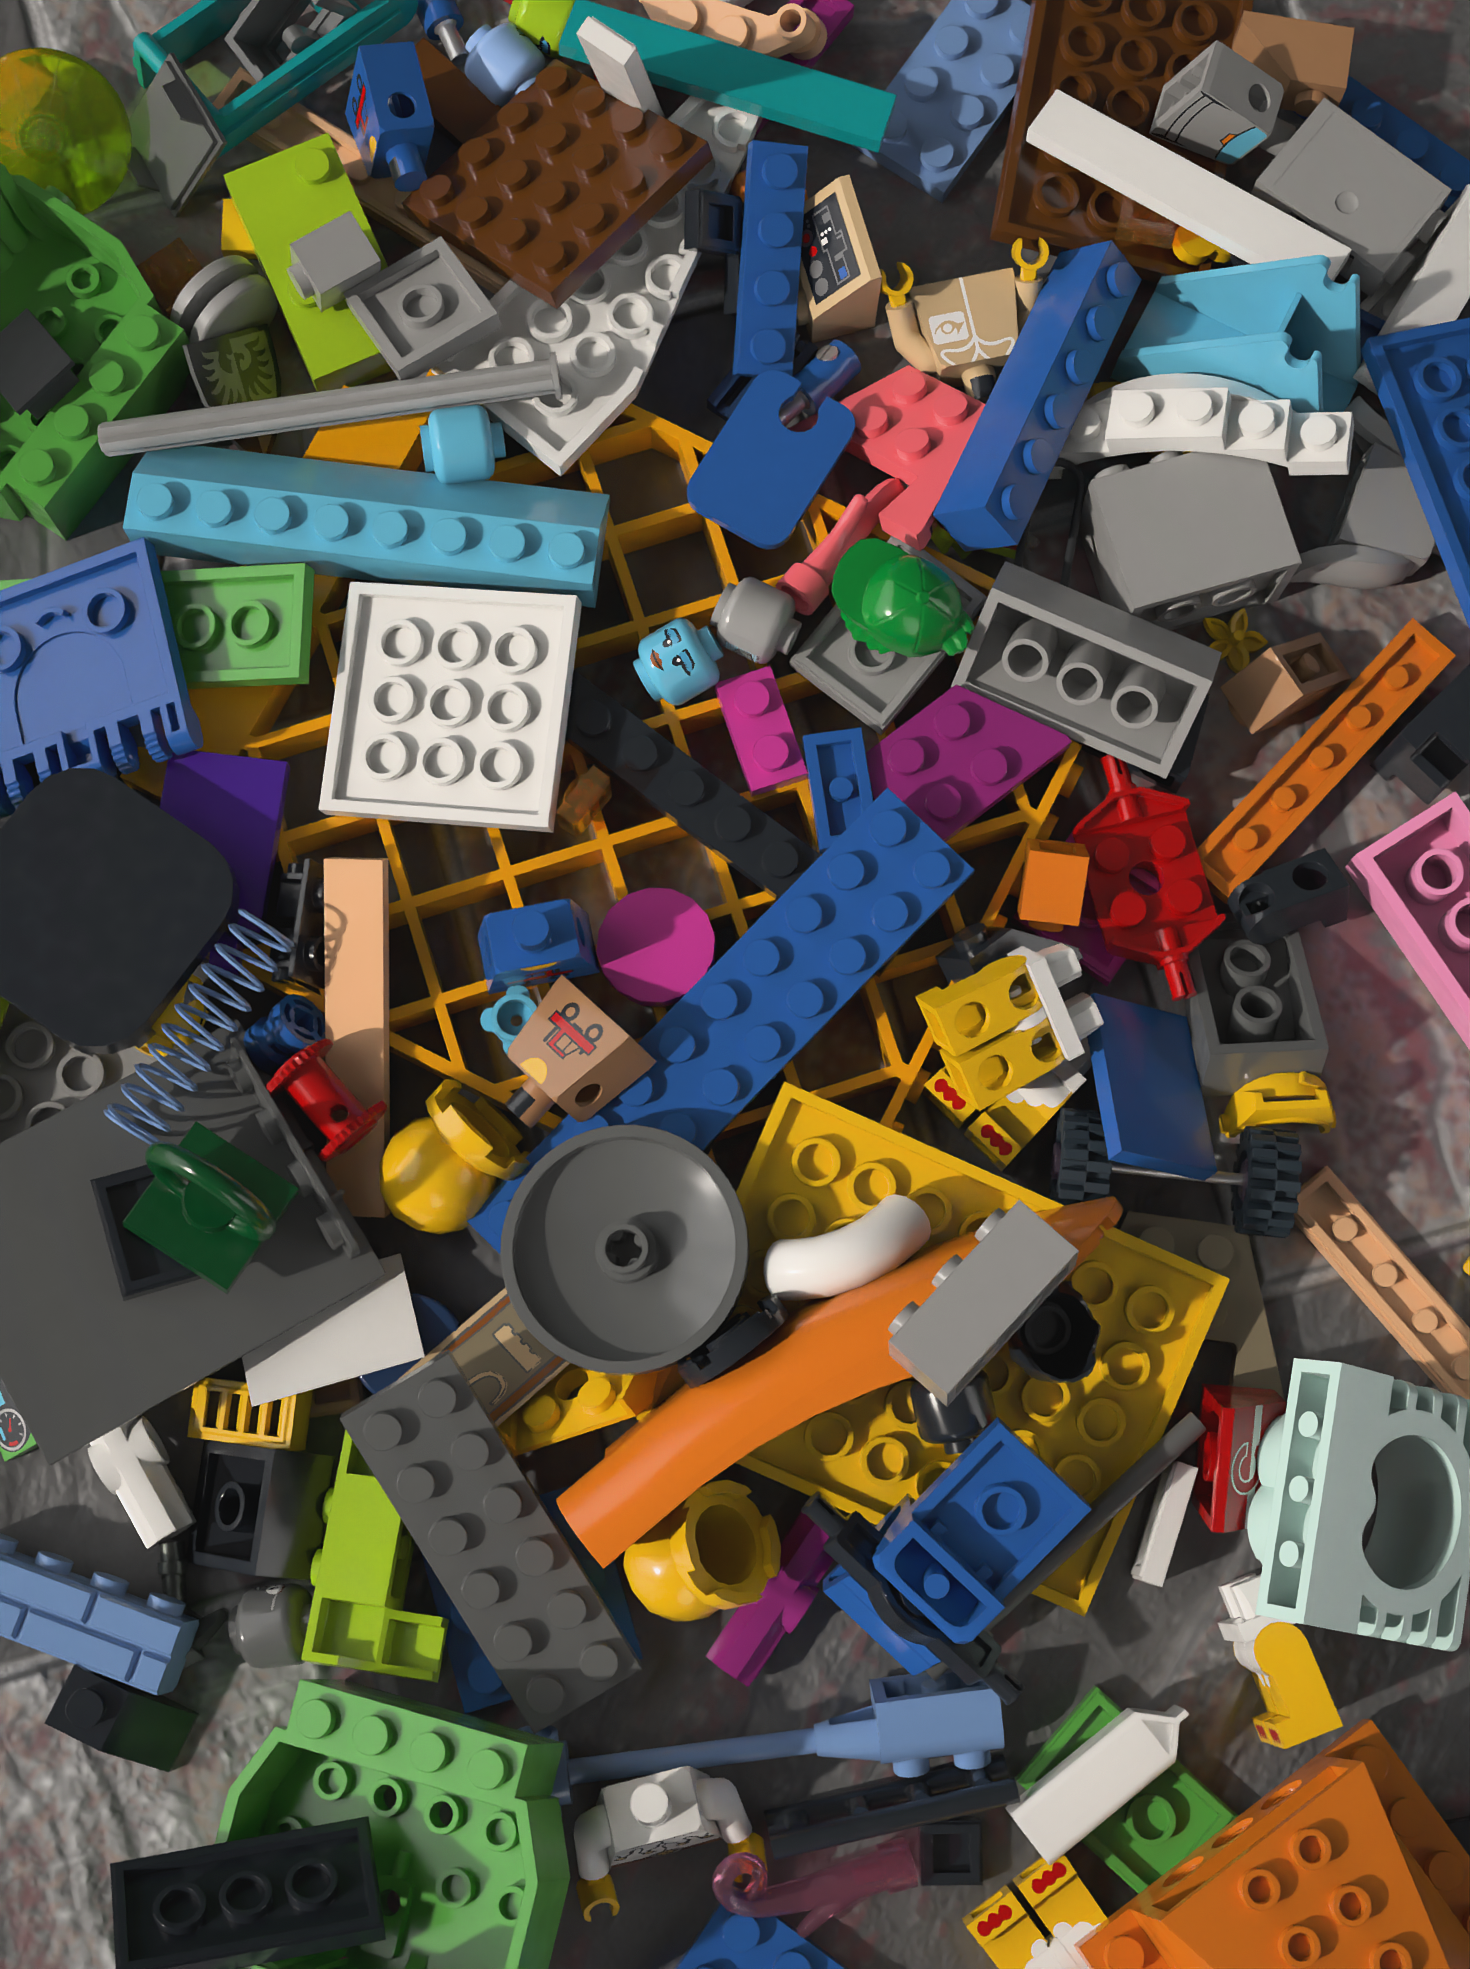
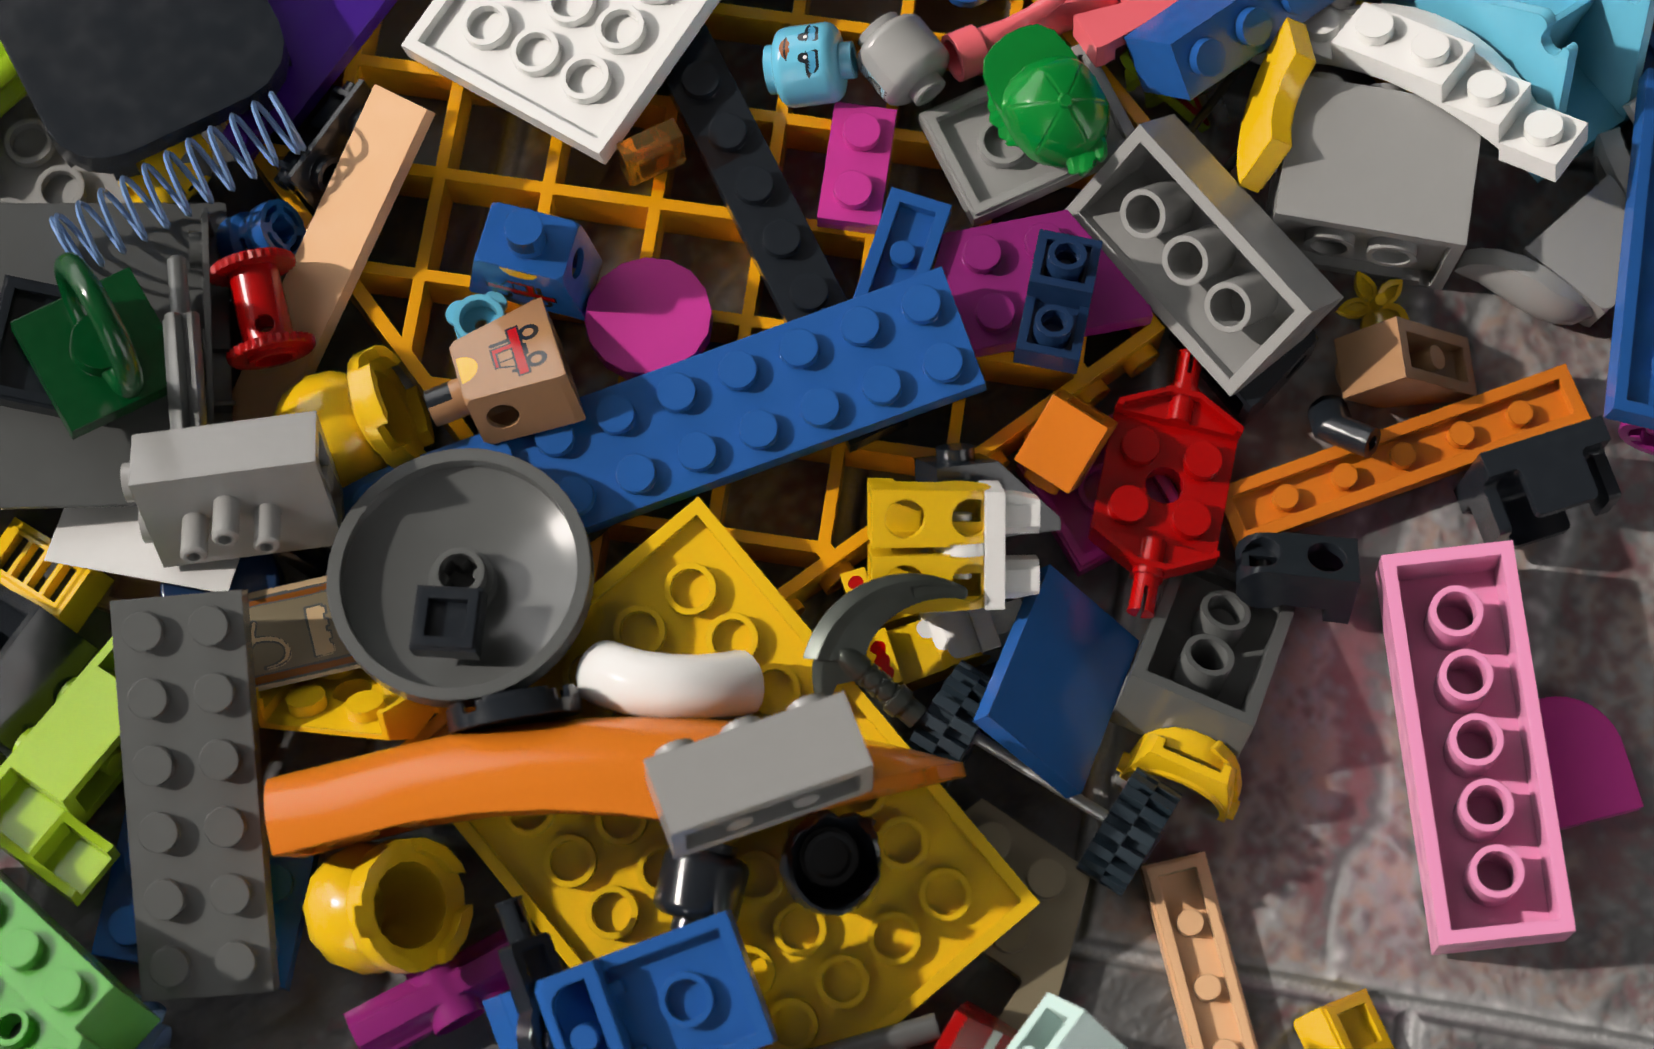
camera: 30 degrees right, 5 degrees down
(290, 1181) = (183, 352): none -> dark grey axle
(395, 1271) = (237, 491): none -> light grey piece
(641, 1295) = (448, 622): none -> black tile
(967, 1132) = (849, 626): none -> pearl dark grey piece
(993, 769) = (1057, 301): none -> dark blue slope
(1083, 515) = (1271, 105): none -> yellow tile
(1256, 760) = (1334, 425): none -> black arm

